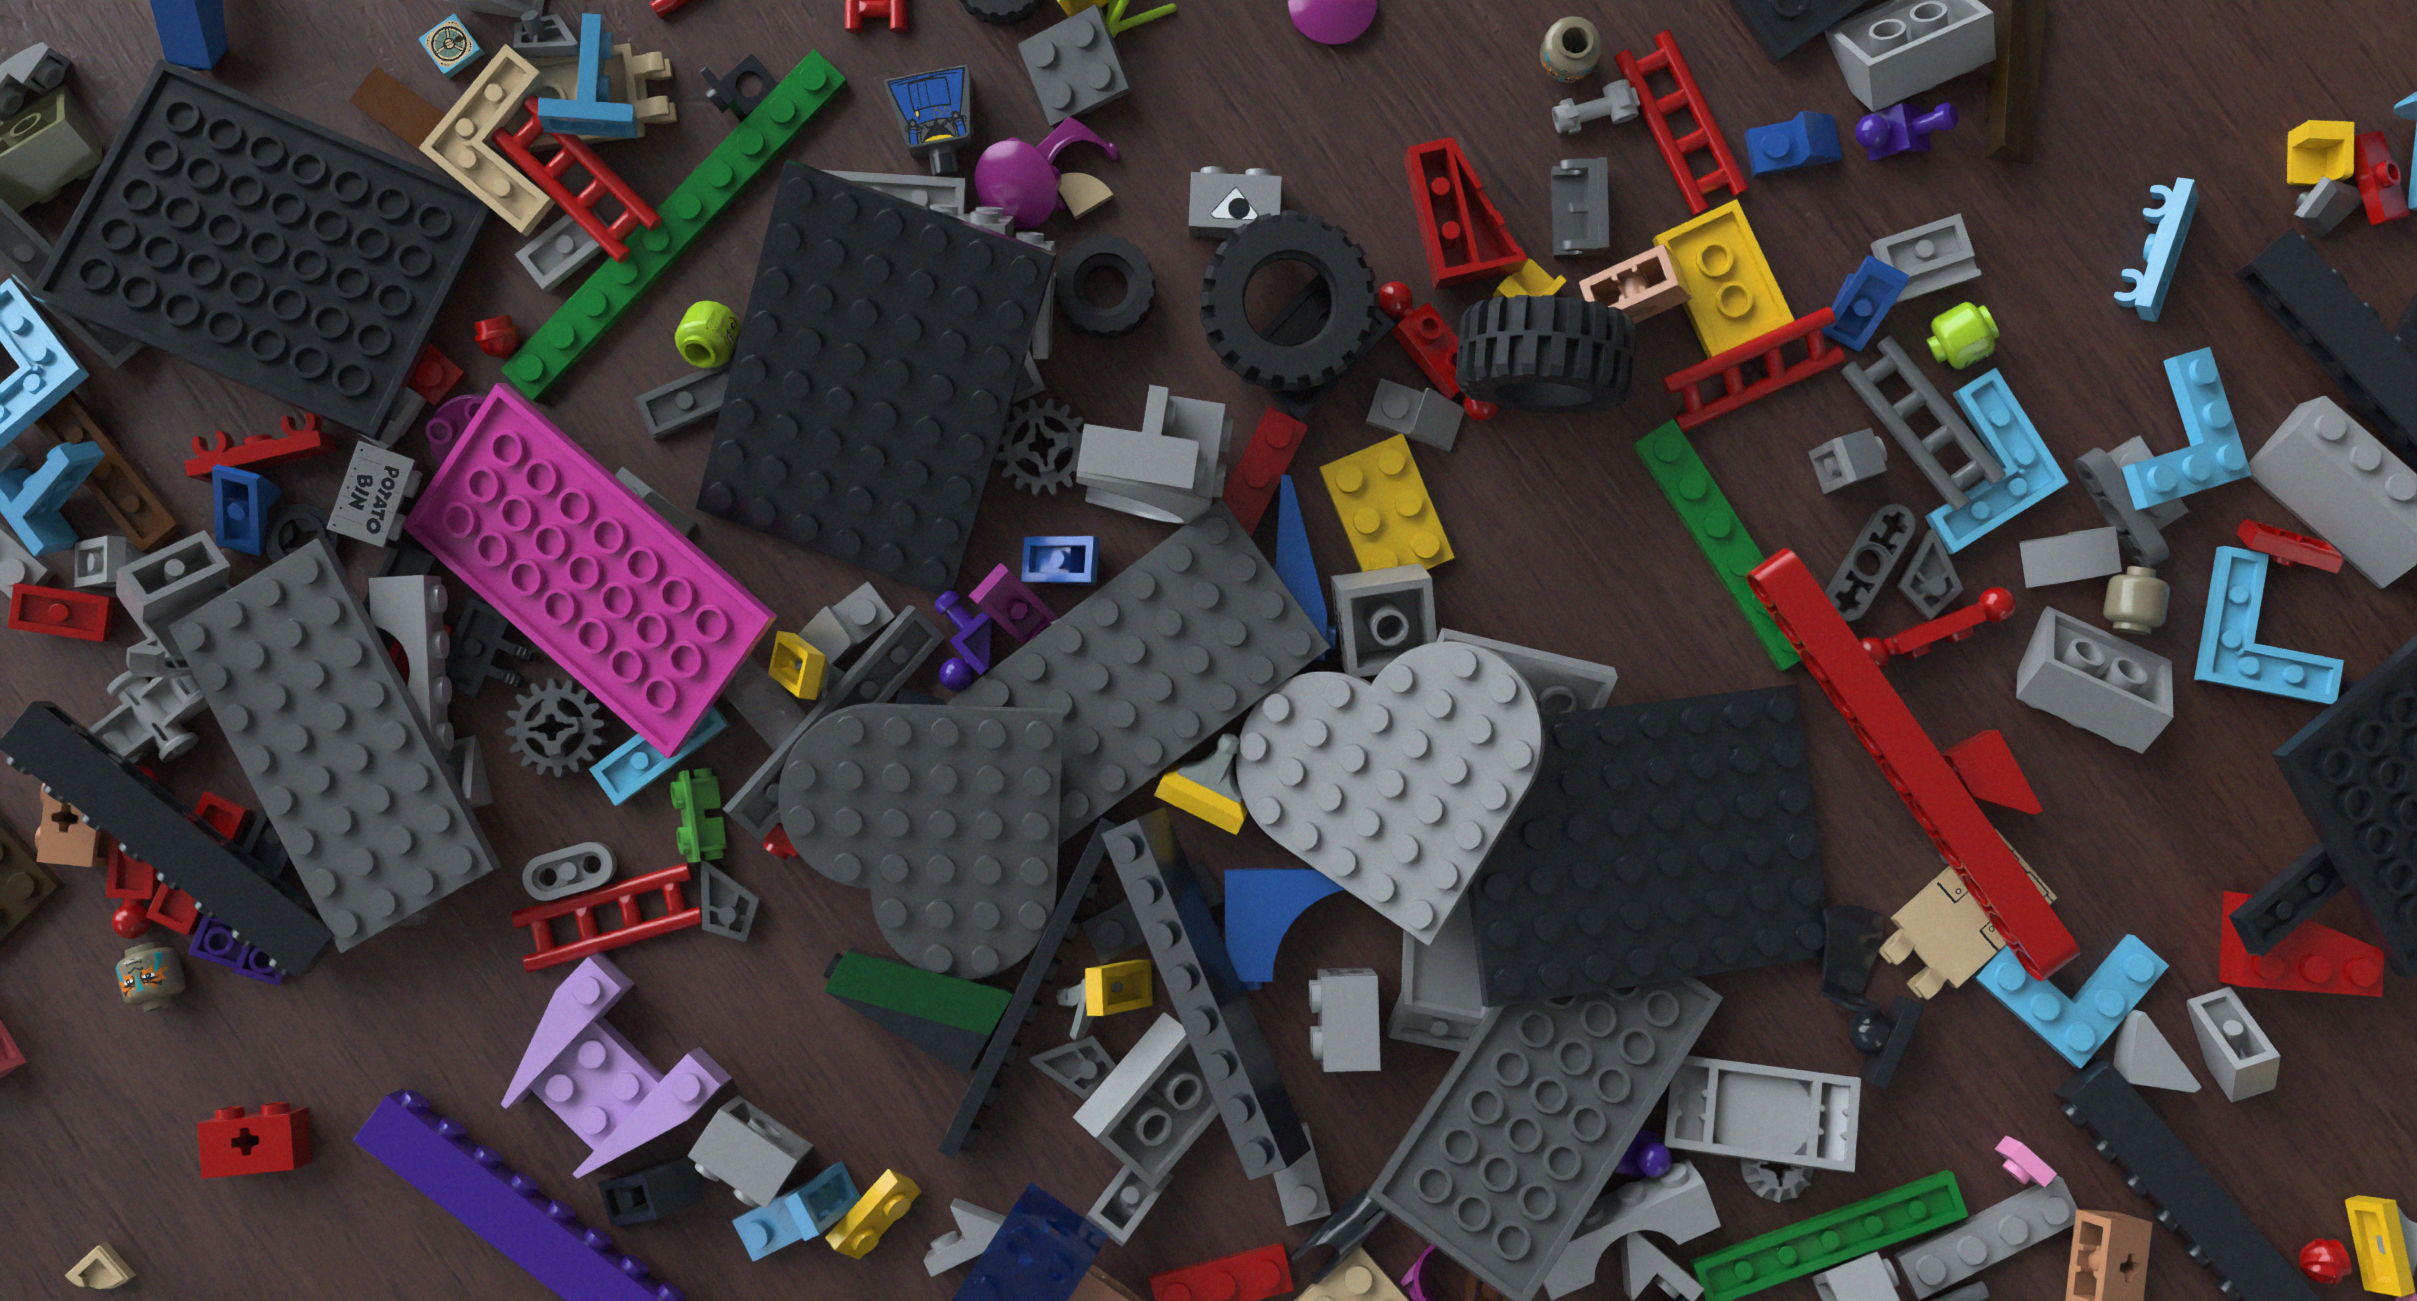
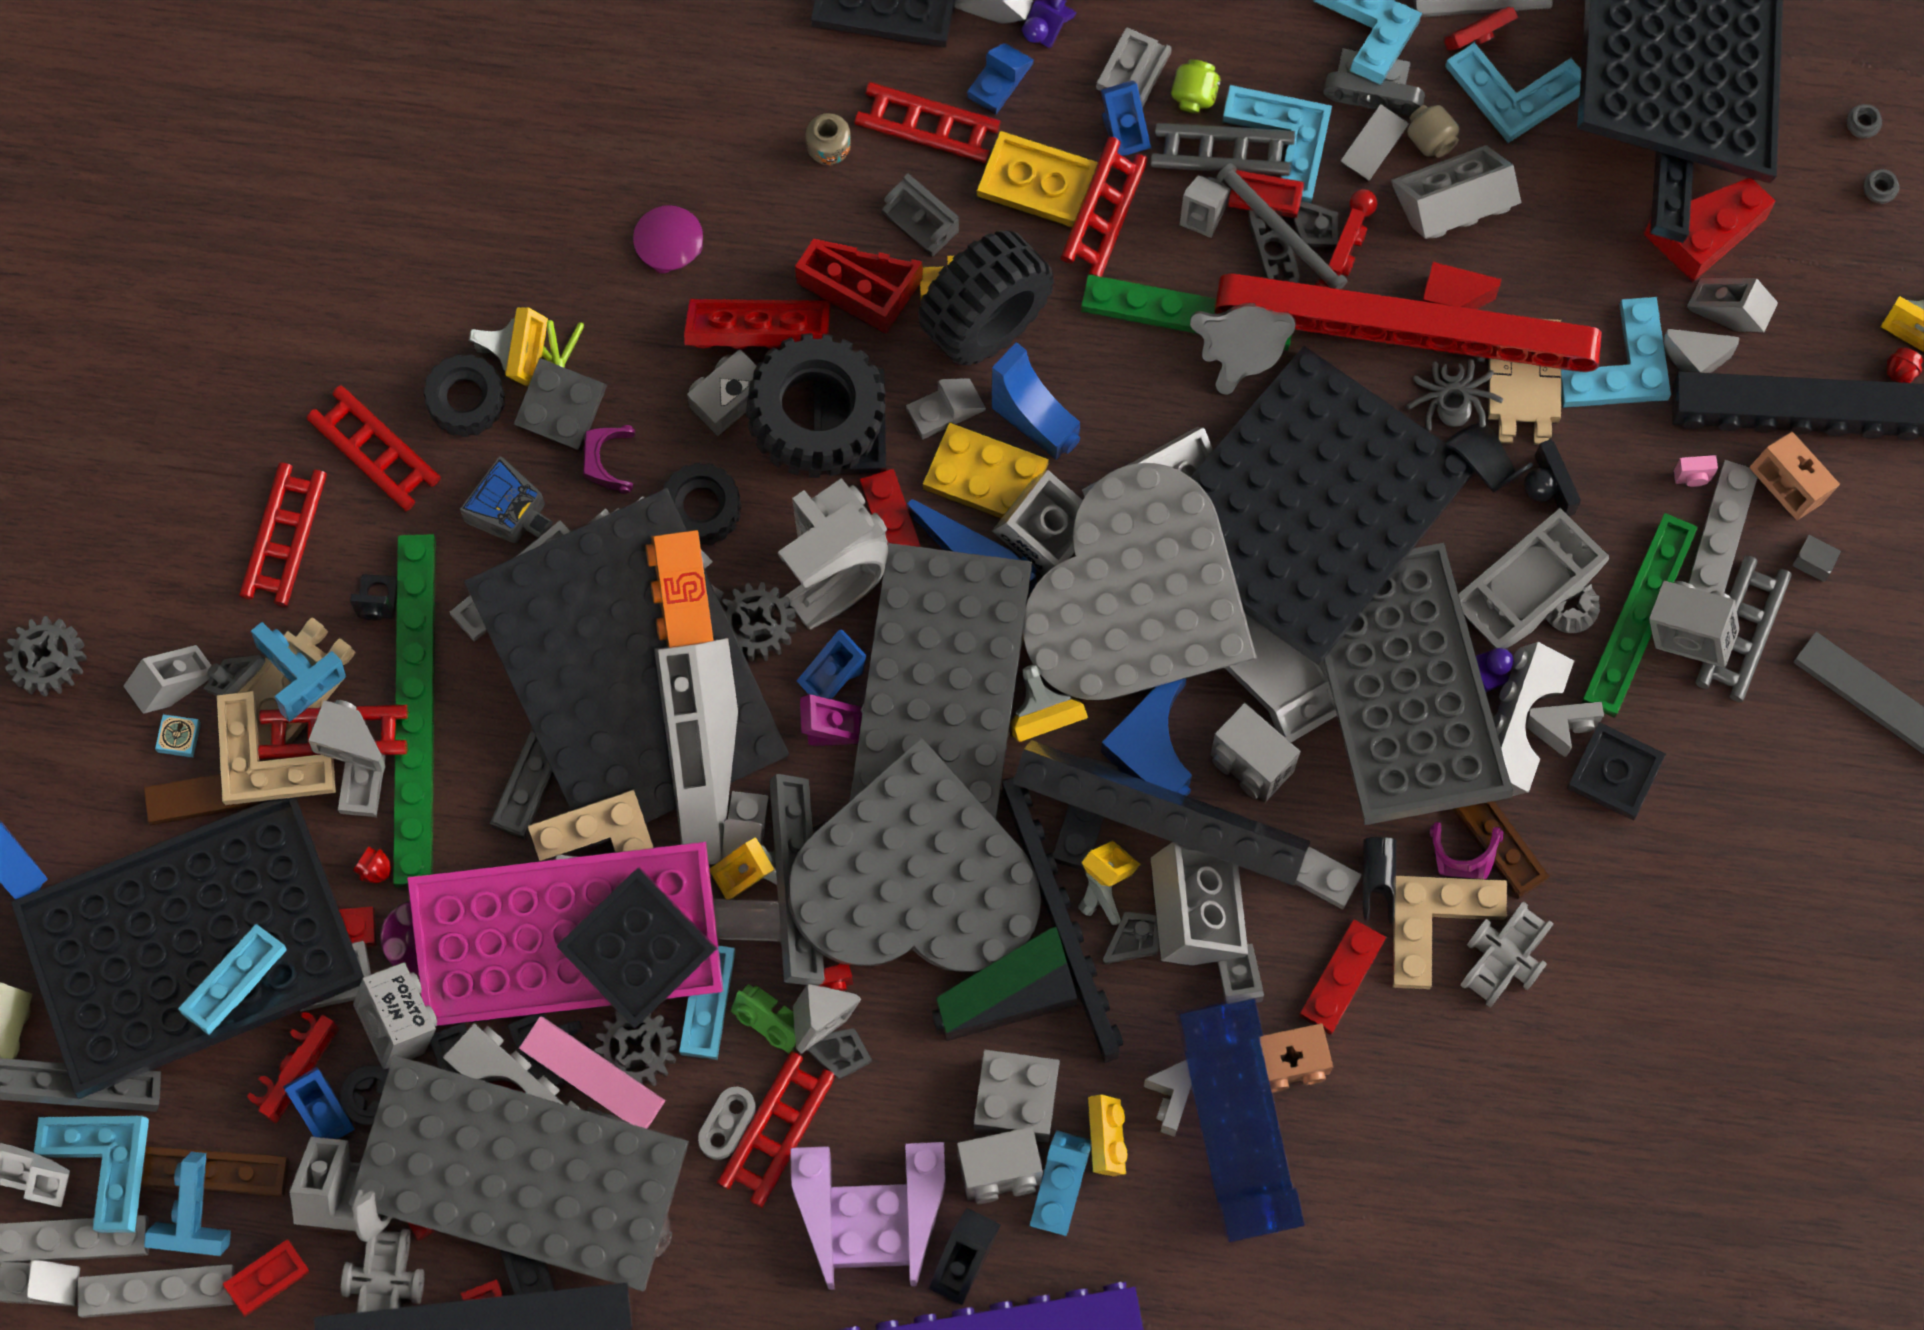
camera: 45 degrees left, 15 degrees down
(100, 559) = (264, 1222): light grey slope -> none
(248, 327) = (232, 979): none -> medium azure plate
(491, 716) = (591, 1074): none -> bright pink tile
(571, 197) = (345, 736): none -> light grey slope
(625, 650) = (637, 947): none -> black plate
(708, 334) = (499, 743): lime head -> none
(732, 860) = (820, 1013): none -> light grey slope
(733, 504) = (612, 817): none -> tan plate
(831, 1103) = (1016, 1094): none -> light grey brick
(874, 509) = (700, 736): none -> light grey wedge
(971, 641) = (829, 769): dark purple piece -> none
(973, 363) = (680, 588): none -> orange brick
(1019, 181) = (591, 489): magenta dish -> none
(1083, 193) = (634, 468): tan tile -> none
(1324, 165) = (753, 322): none -> red plate
(1429, 344) = (921, 362): red plate -> none
(1487, 498) = (1030, 406): none -> blue arch
(1618, 101) = (881, 142): light grey bar -> none
(1640, 284) = (996, 212): nougat brick -> none
(1741, 629) = (1243, 339): none -> dark grey tile
(1882, 869) = (1454, 396): none -> dark grey animal
(1892, 556) = (1280, 227): none -> dark grey bar
(1915, 507) = (1279, 193): none -> red tile

